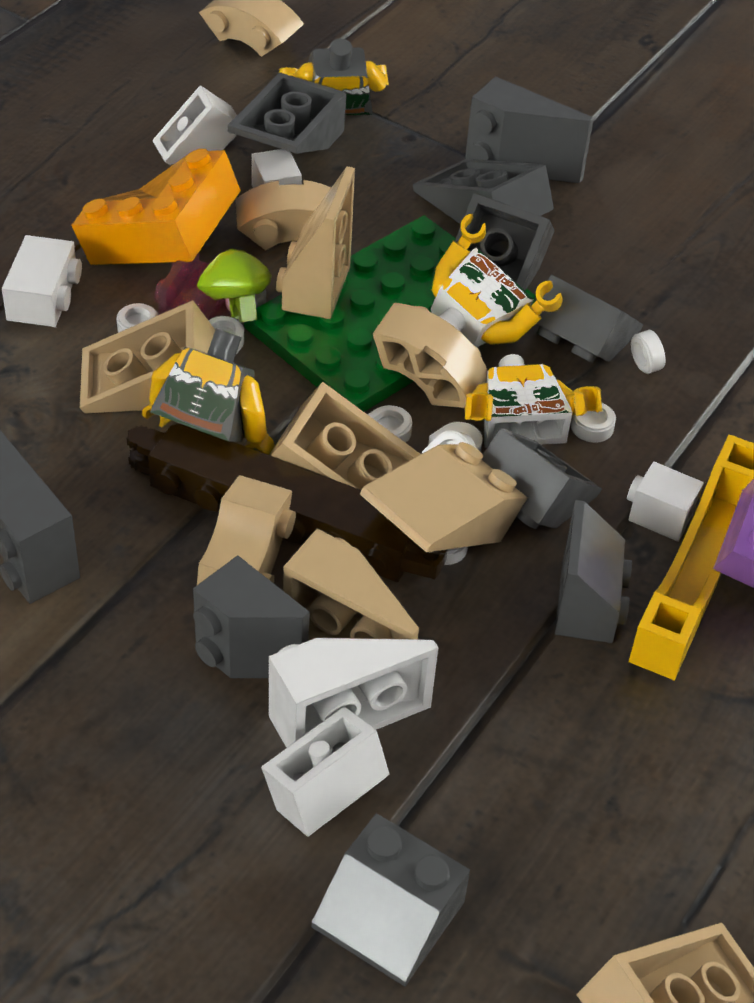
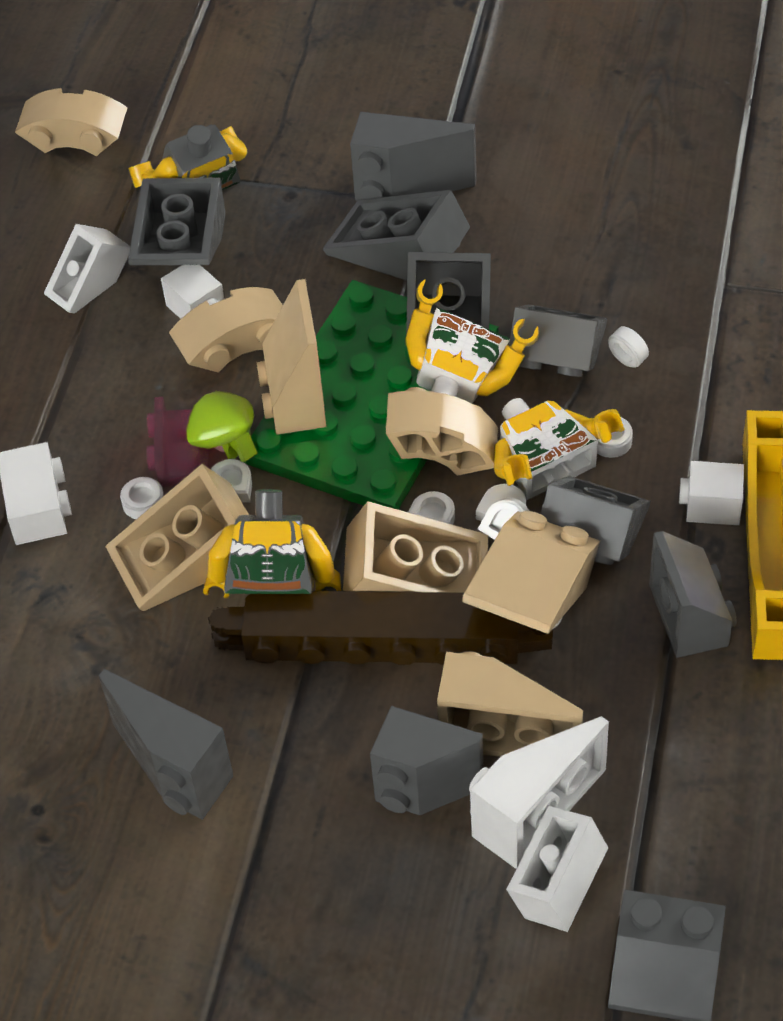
camera: 15 degrees left, 5 degrees up
(163, 218) = (109, 378): light orange slope -> none
(249, 525) = (372, 679): tan brick -> none

